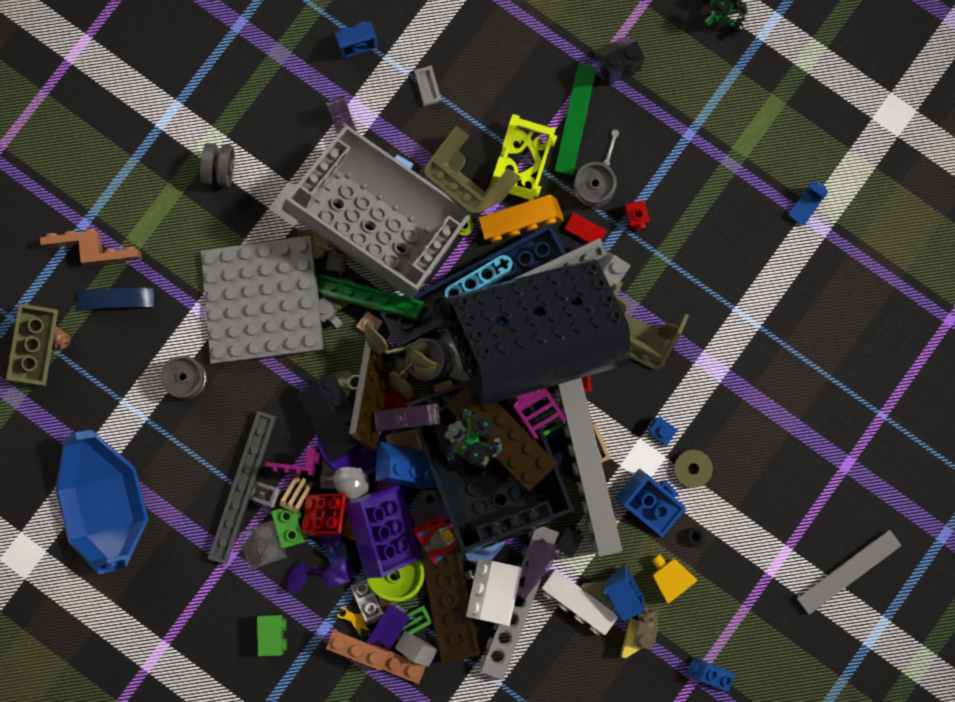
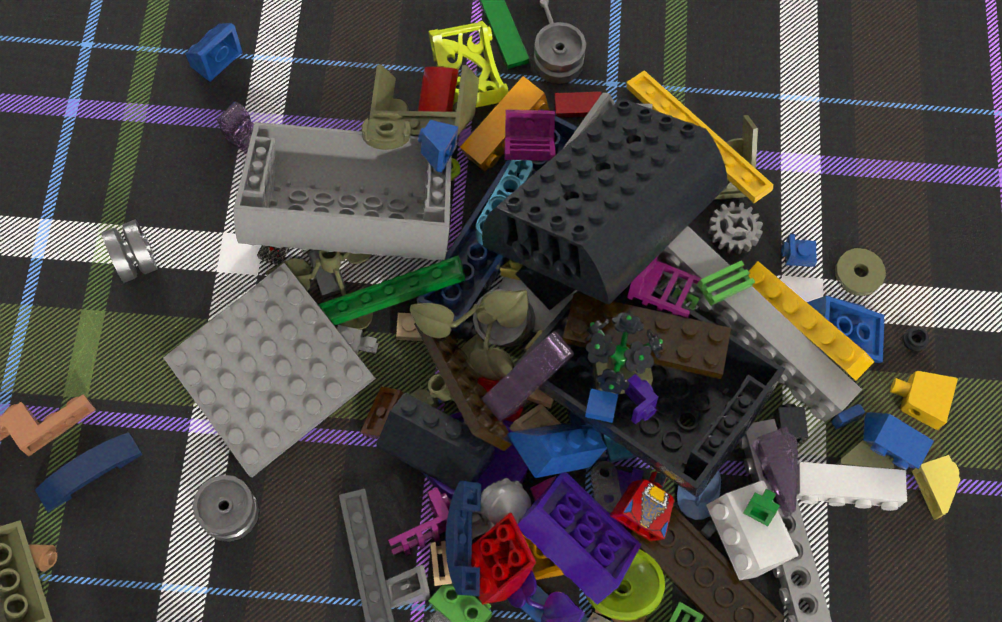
camera: 35 degrees left, 15 degrees down
(307, 489) = (459, 538): none -> dark blue slope
(316, 371) = (379, 411): none -> reddish brown plate
(426, 192) = (377, 138): none -> olive tile
(427, 86) = (319, 59): light grey tile -> none
(439, 464) = (601, 405): none -> blue tile
(456, 215) = (438, 143): none -> blue slope
(469, 473) = (643, 396): none -> dark purple bracket
(488, 167) = (438, 89): none -> red slope
(504, 584) = (762, 507): none -> green tile
(522, 246) = (529, 135): none -> magenta plate
(594, 432) = (742, 274): none -> bright green tile
(611, 559) = (848, 416): none -> blue tile
(621, 483) = (811, 323): none -> yellow brick
(625, 375) = (739, 237): none -> light grey gear
(637, 215) = (621, 60): red brick -> none
(646, 629) = (950, 466): dark tan bracket -> none
(647, 308) = (738, 170): none -> yellow plate

